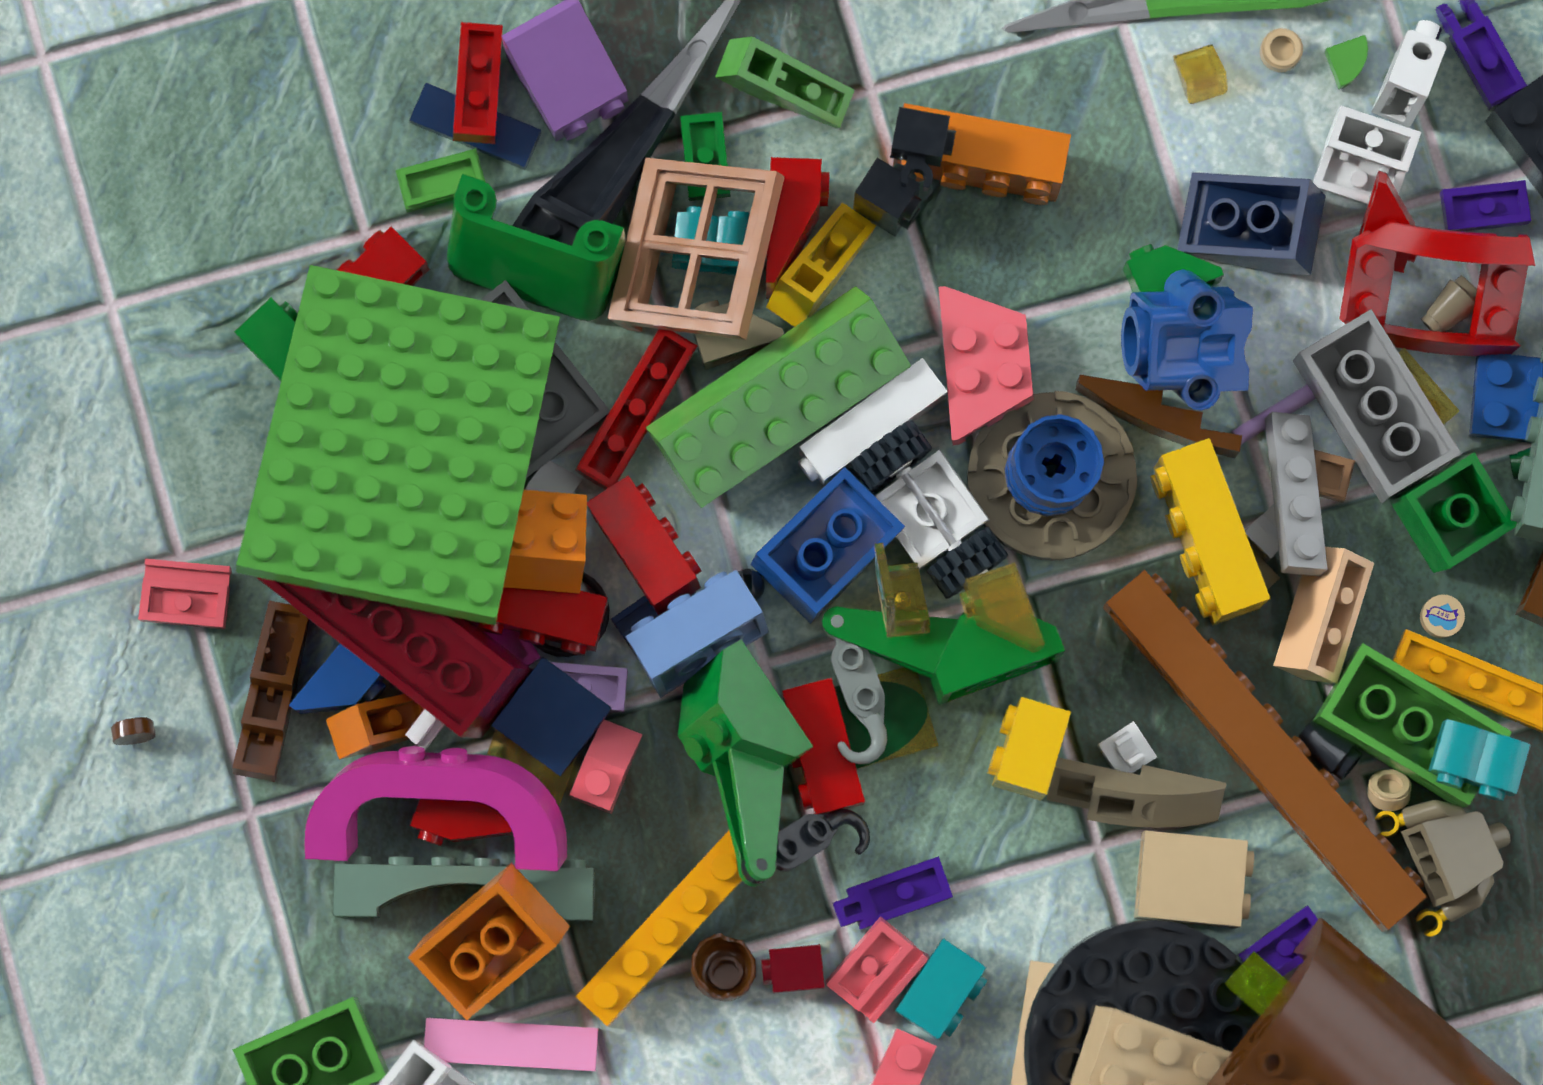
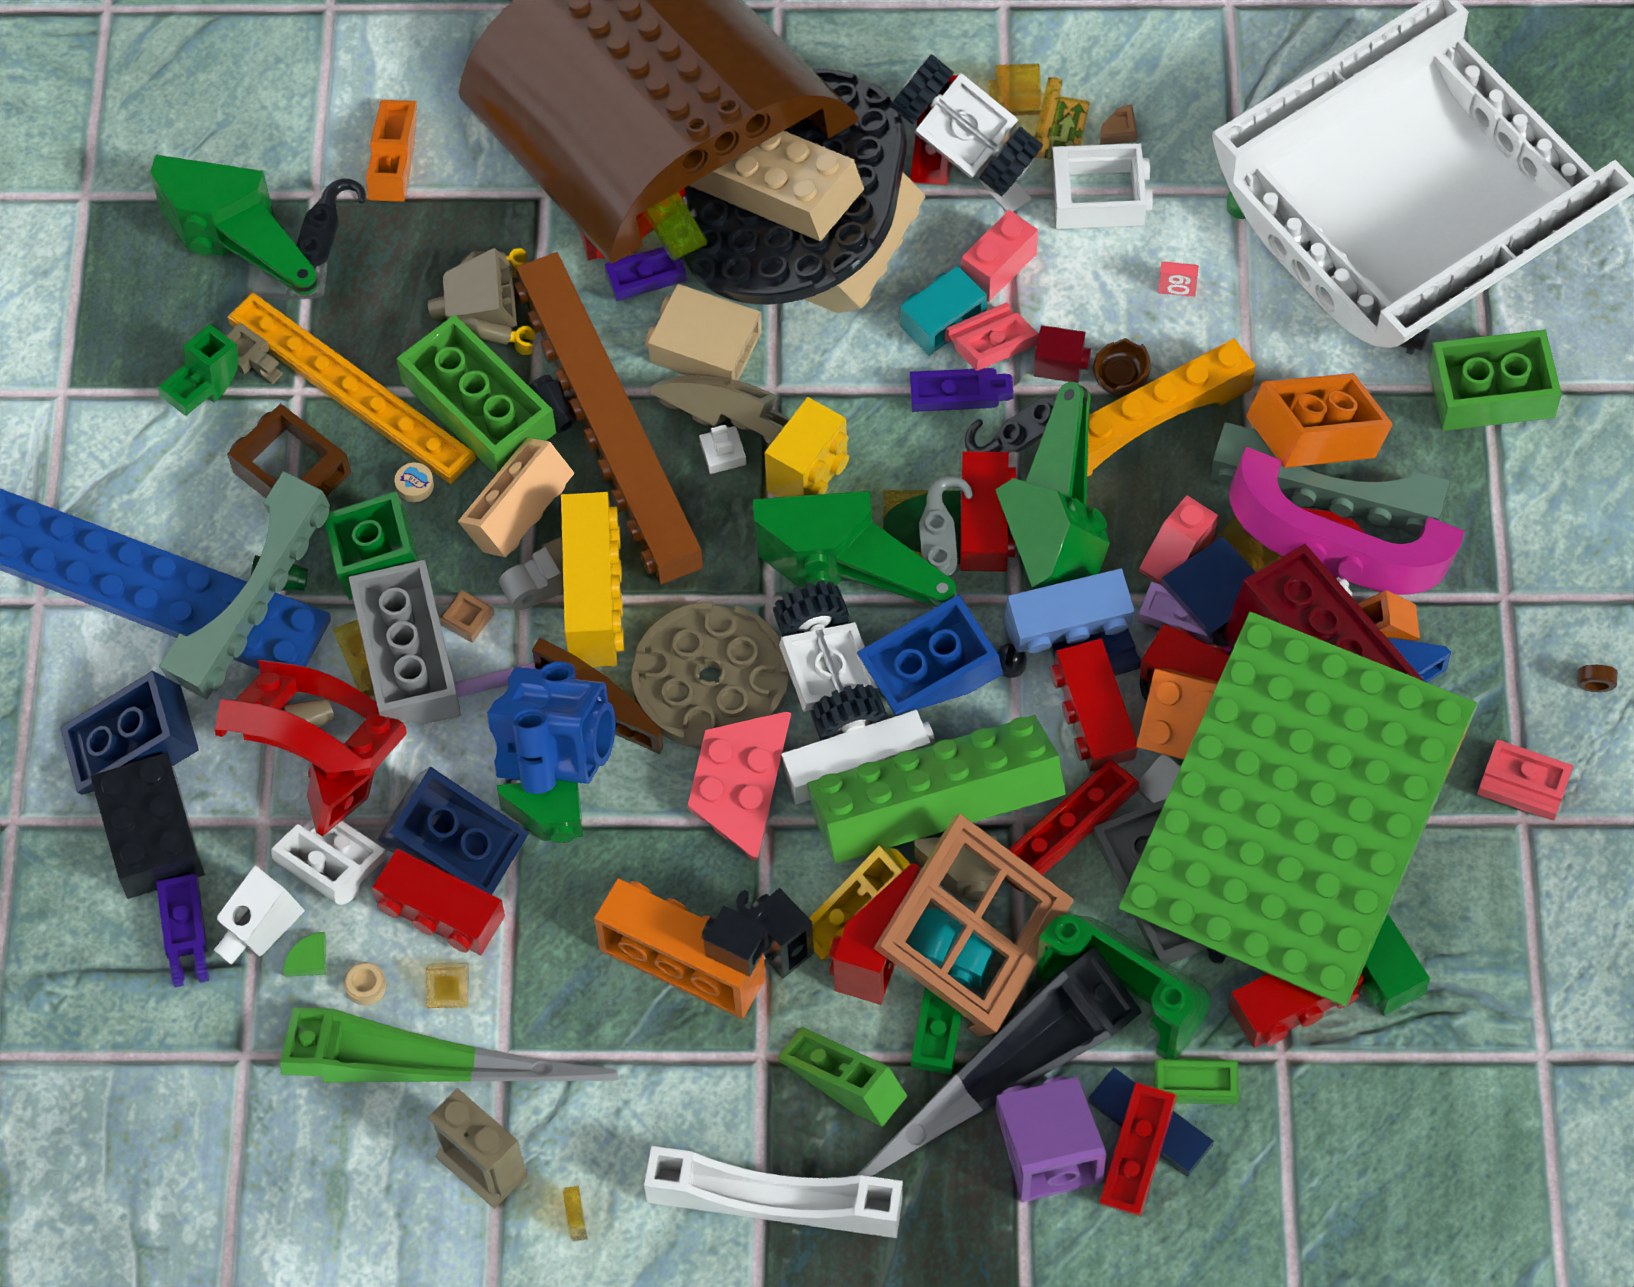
camera: 160 degrees left, 20 degrees down
(270, 692) = (1476, 654): reddish brown slope -> none
(512, 1044) = (1307, 359): bright pink tile -> none
(900, 596) = (879, 588): clear yellow panel -> none
(1002, 606) = (797, 536): clear yellow slope -> none
(1070, 447) = (709, 655): blue wheel -> none
(1238, 143) = (438, 903): none -> red brick
(1295, 494) = (503, 594): light grey plate -> none
(1389, 790) = (517, 357): tan tile -> none
(1478, 759) = (434, 335): teal brick -> none
(1485, 206) = (237, 793): dark purple plate -> none

